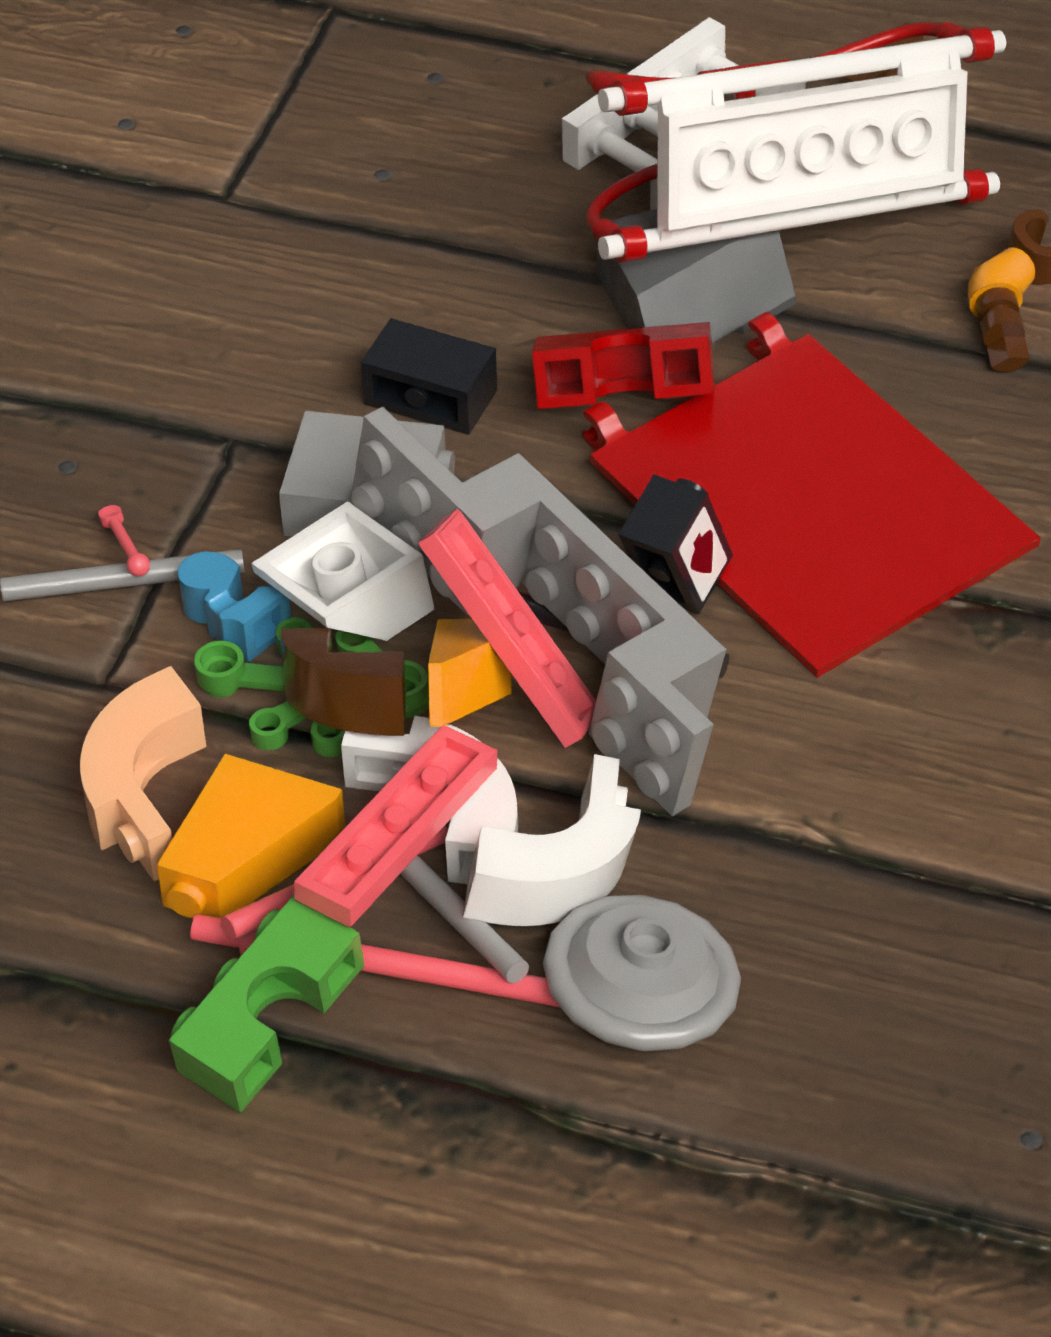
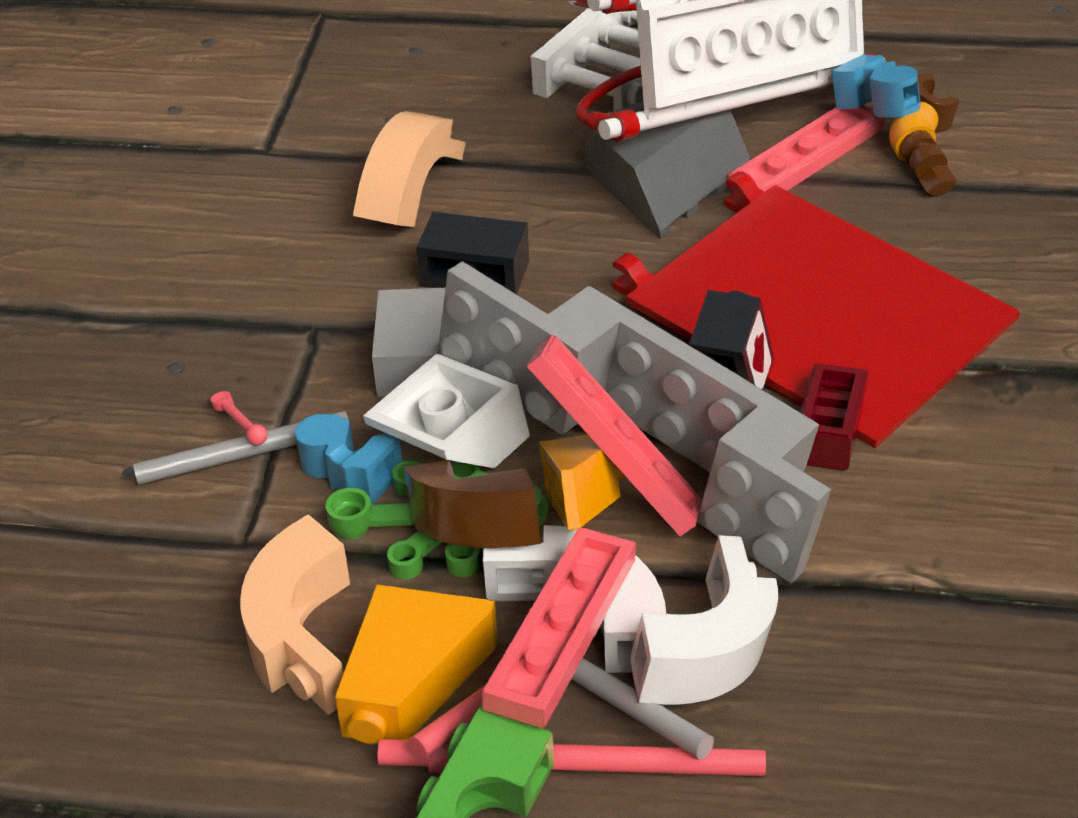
camera: 10 degrees left, 5 degrees down
(369, 248) = (400, 164): none -> light nougat arch
(642, 972) = (819, 731): light grey piece -> none
(652, 359) = (644, 218): red arch -> none
(762, 667) = (835, 413): none -> dark red slope
(874, 287) = (812, 148): none -> coral tile
(970, 217) = (870, 78): none -> dark azure leg

